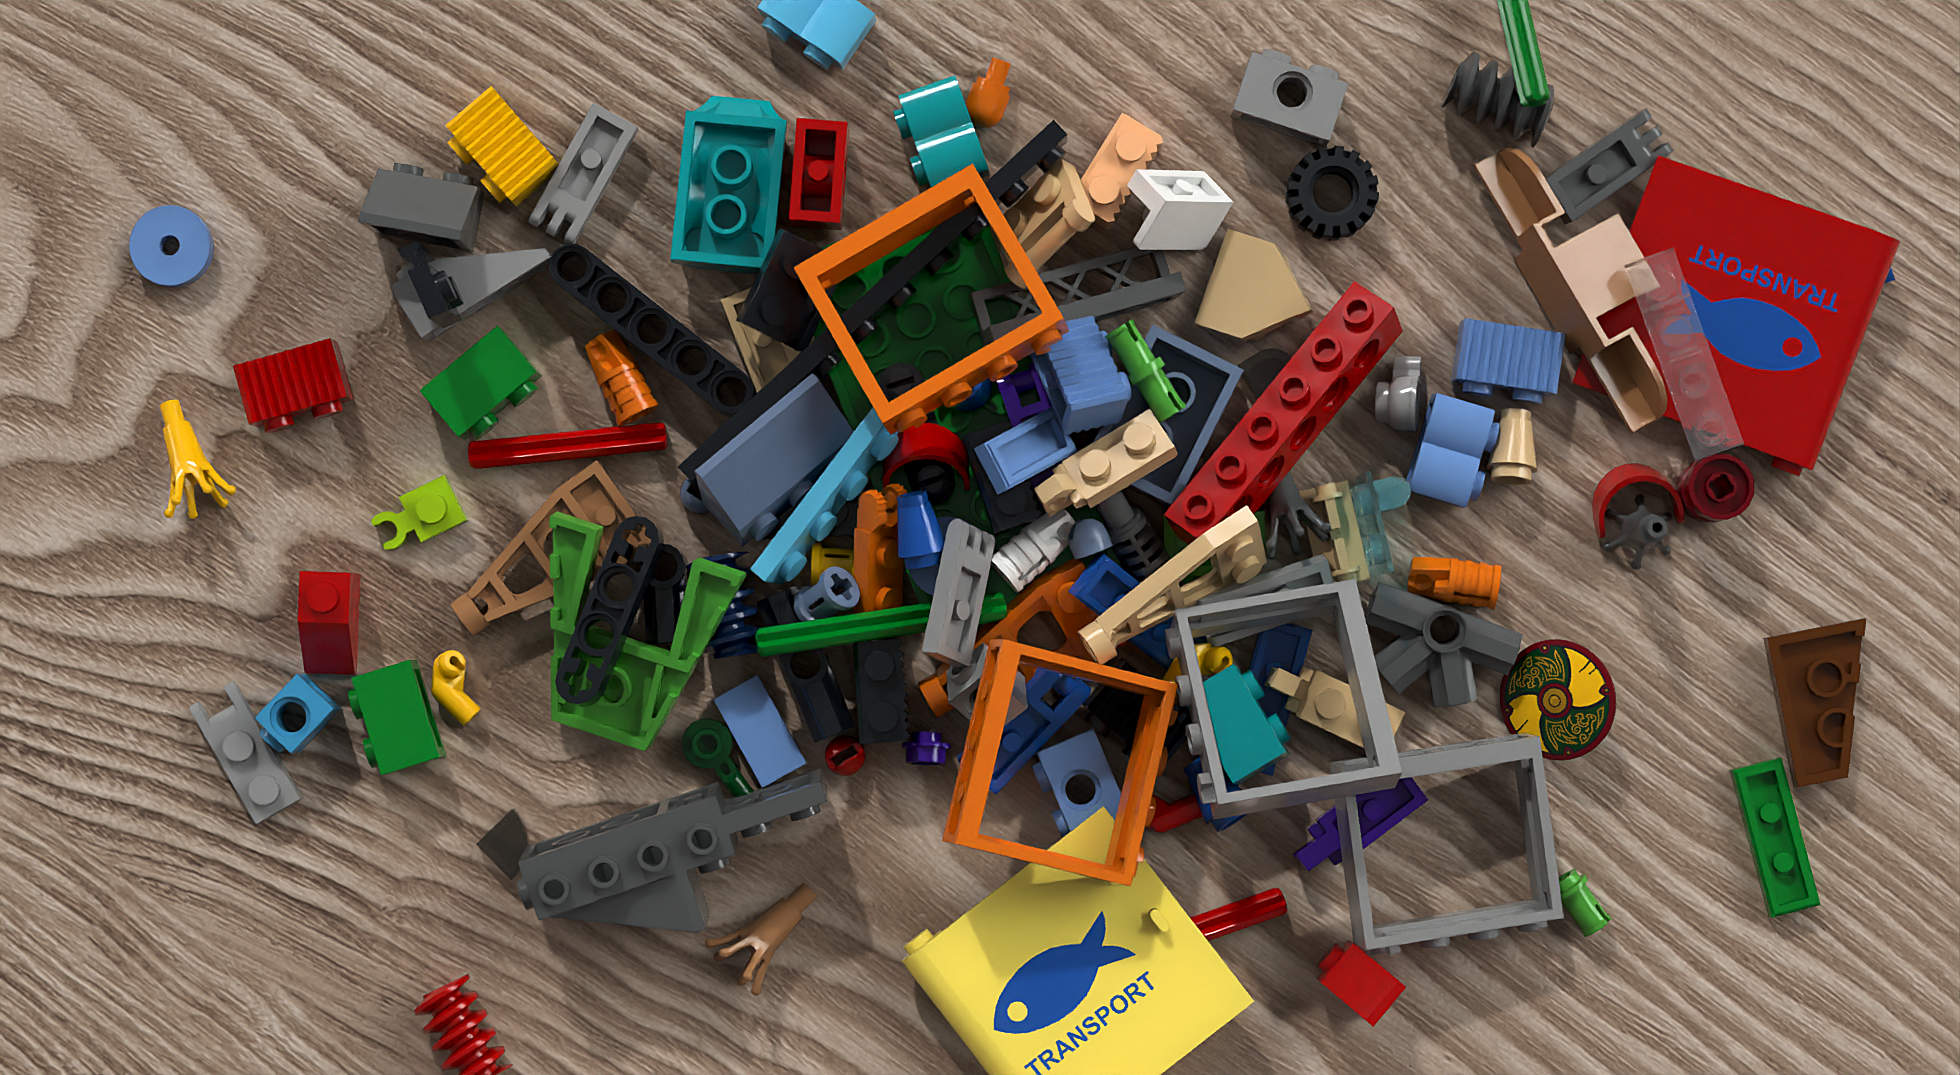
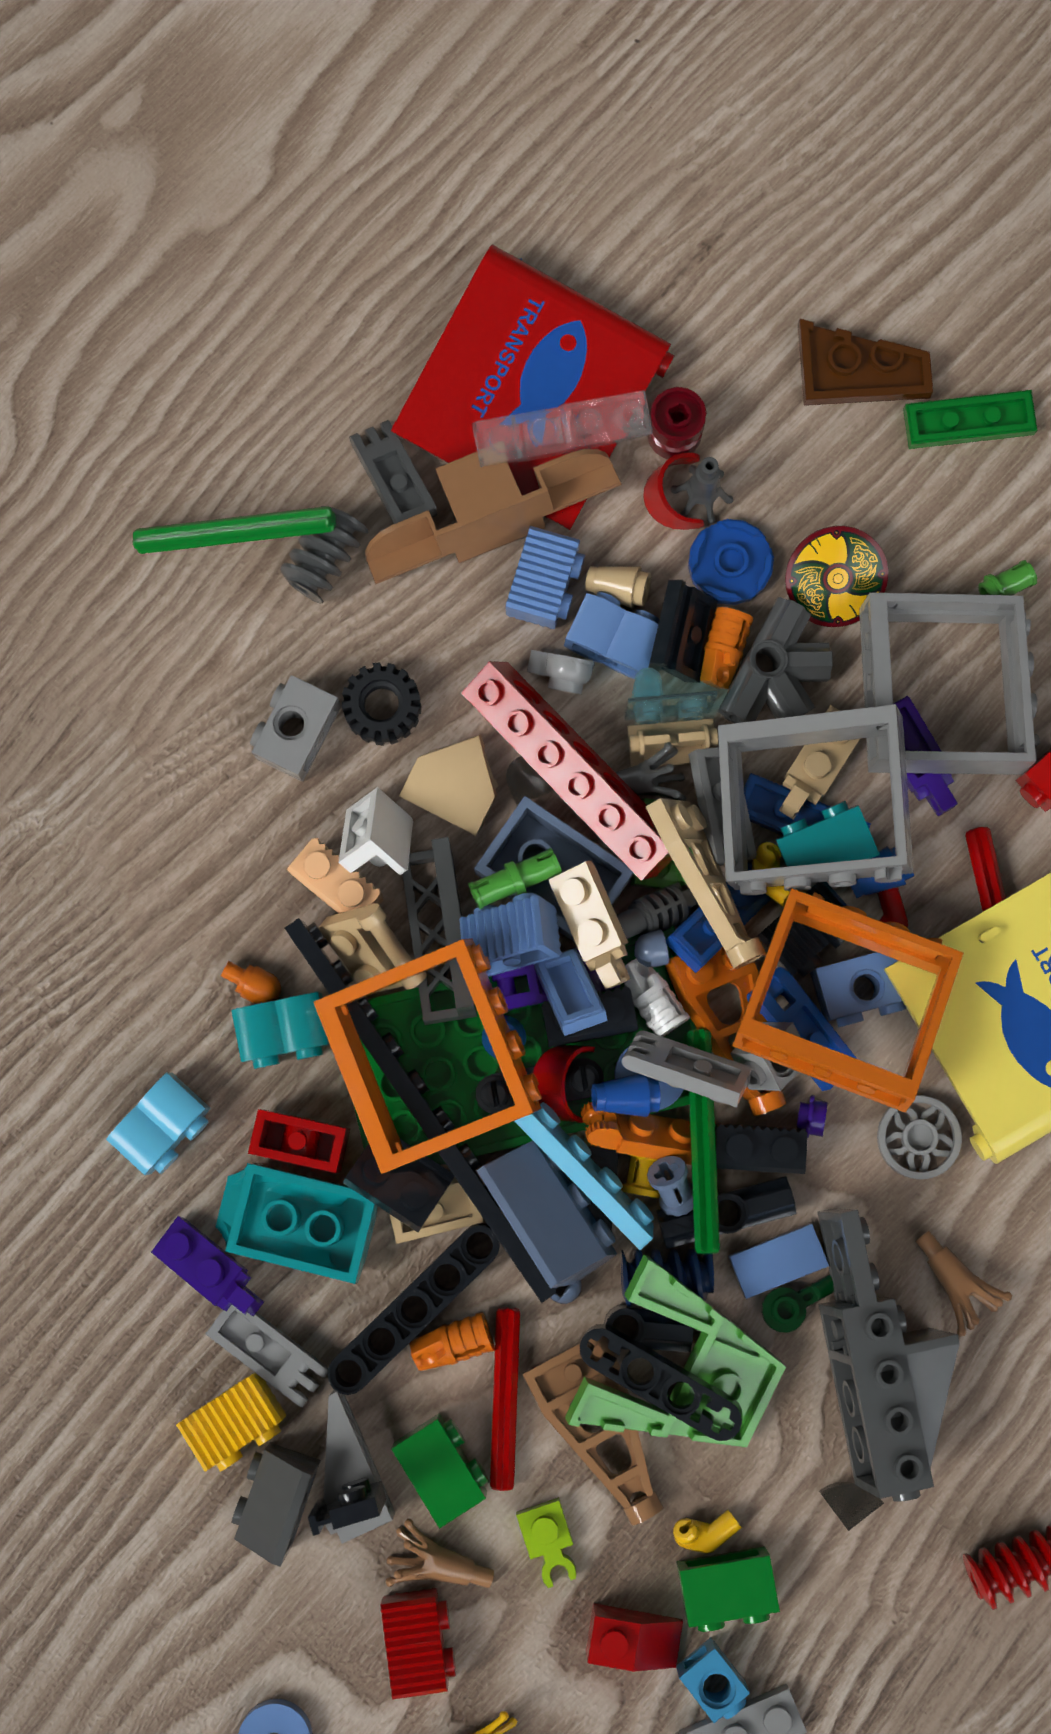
camera: 80 degrees left, 5 degrees down
(381, 393) = (435, 1562): none -> medium nougat piece
(665, 92) = (206, 1267): none -> dark purple hinge
(851, 764) = (800, 1193): red hinge -> none
(919, 874) = (920, 1138): none -> light grey wheel
(1466, 529) = (683, 631): none -> black plate
(1560, 575) = (731, 561): none -> blue tile

